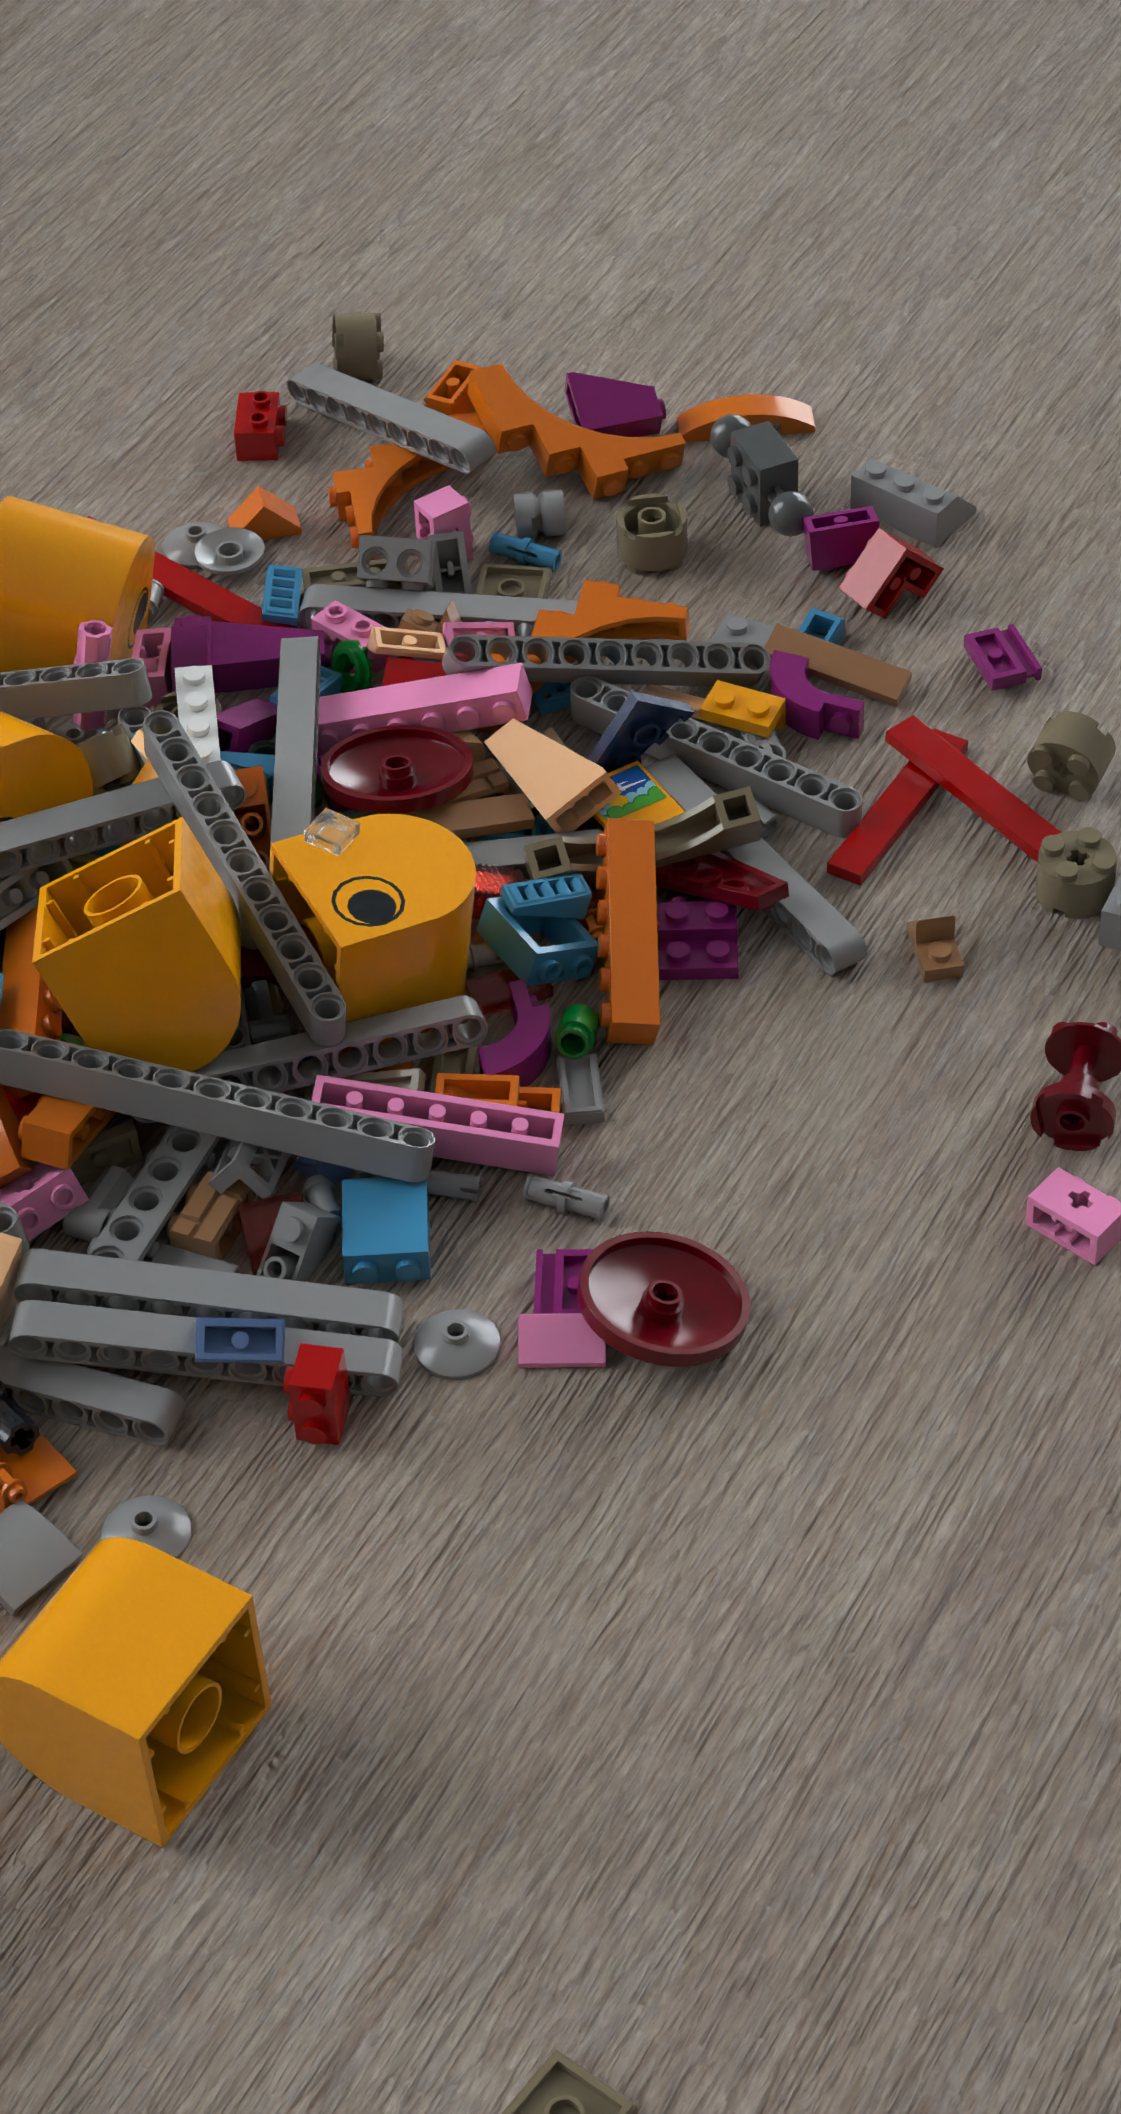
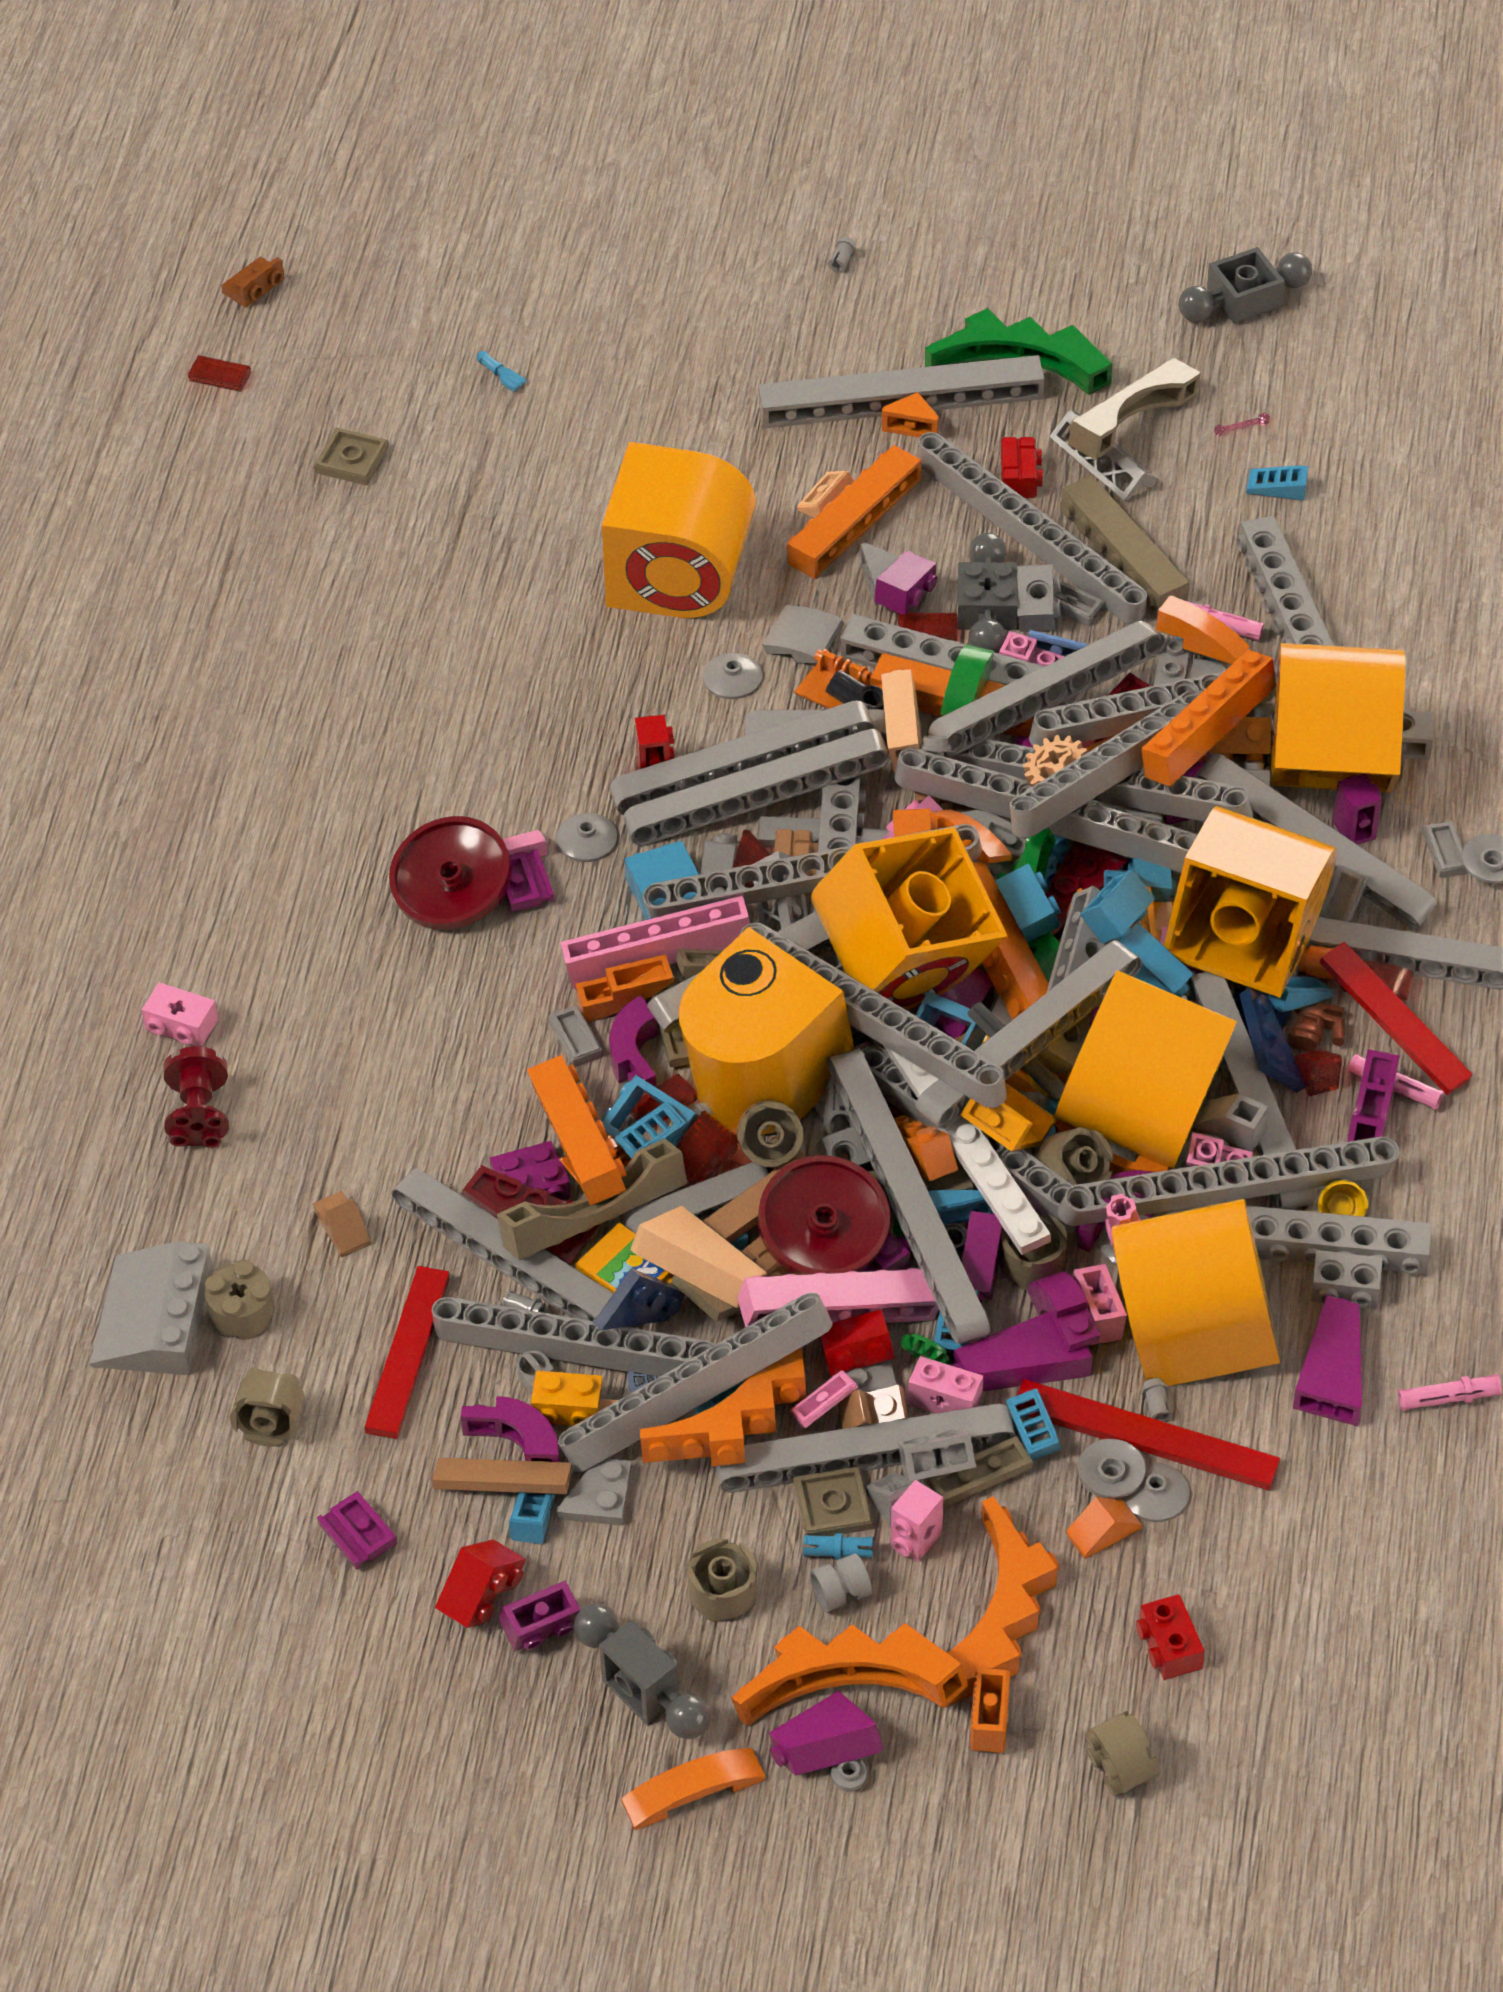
camera: 160 degrees right, 5 degrees up
(240, 1340) = (717, 751): medium blue slope -> none
(332, 831) = (800, 1010): clear tile -> none
(392, 417) = (1031, 1634): light grey beam -> none
(407, 643) = (880, 1359): light nougat slope -> none
(576, 1031) = (591, 1061): green brick -> none
(591, 1203) = (546, 946): light grey pin -> none
(908, 502) = (491, 1705): light grey slope -> none
(970, 785) = (342, 1370): red tile -> none

